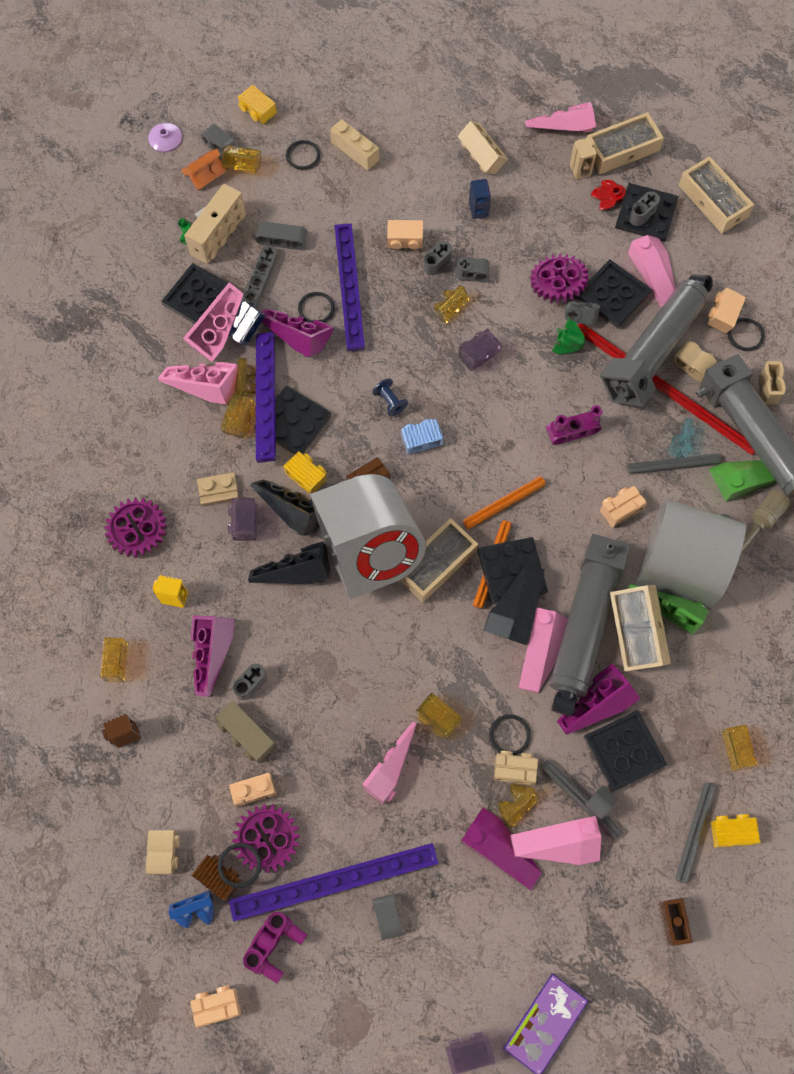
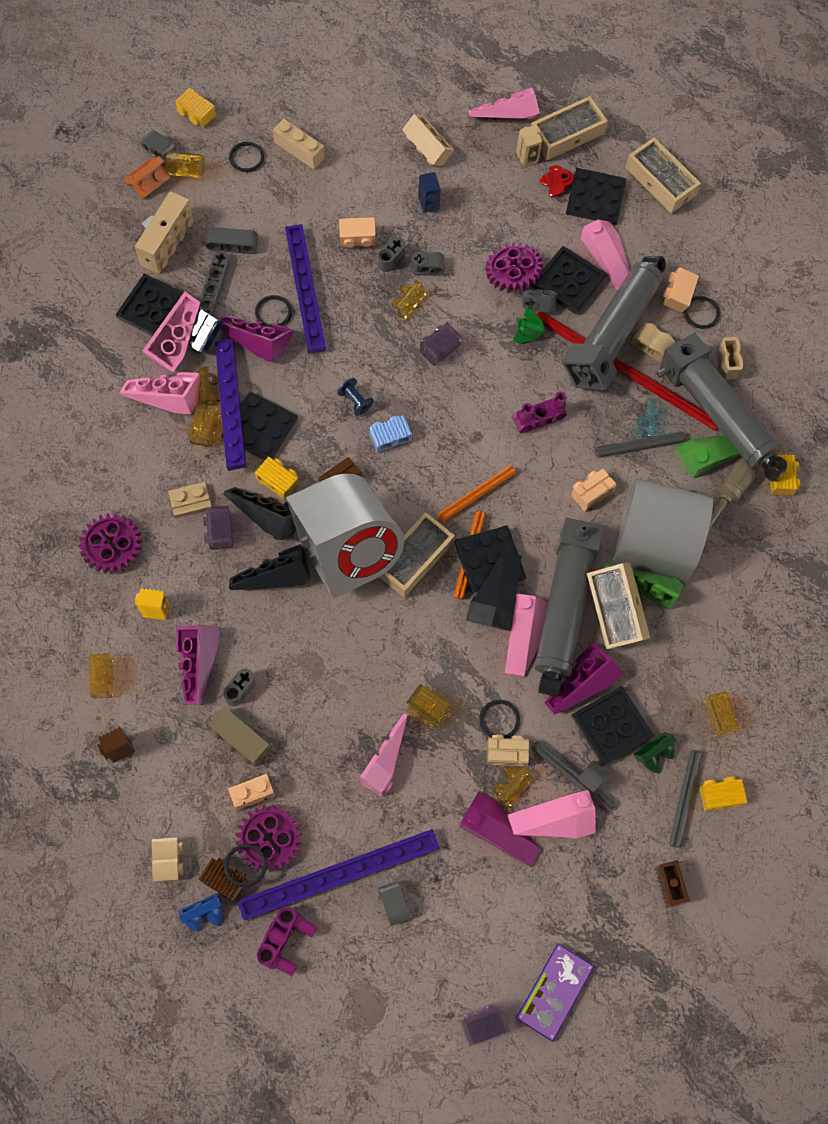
camera: 10 degrees left, 0 degrees up
(165, 137) = (106, 151): lavender dish -> none
(184, 226) = (133, 237): green arm -> none
(215, 1007) = (233, 1003): light nougat brick -> none
(644, 208) = (593, 193): dark grey beam -> none
(673, 775) = (649, 753): none -> dark green tile

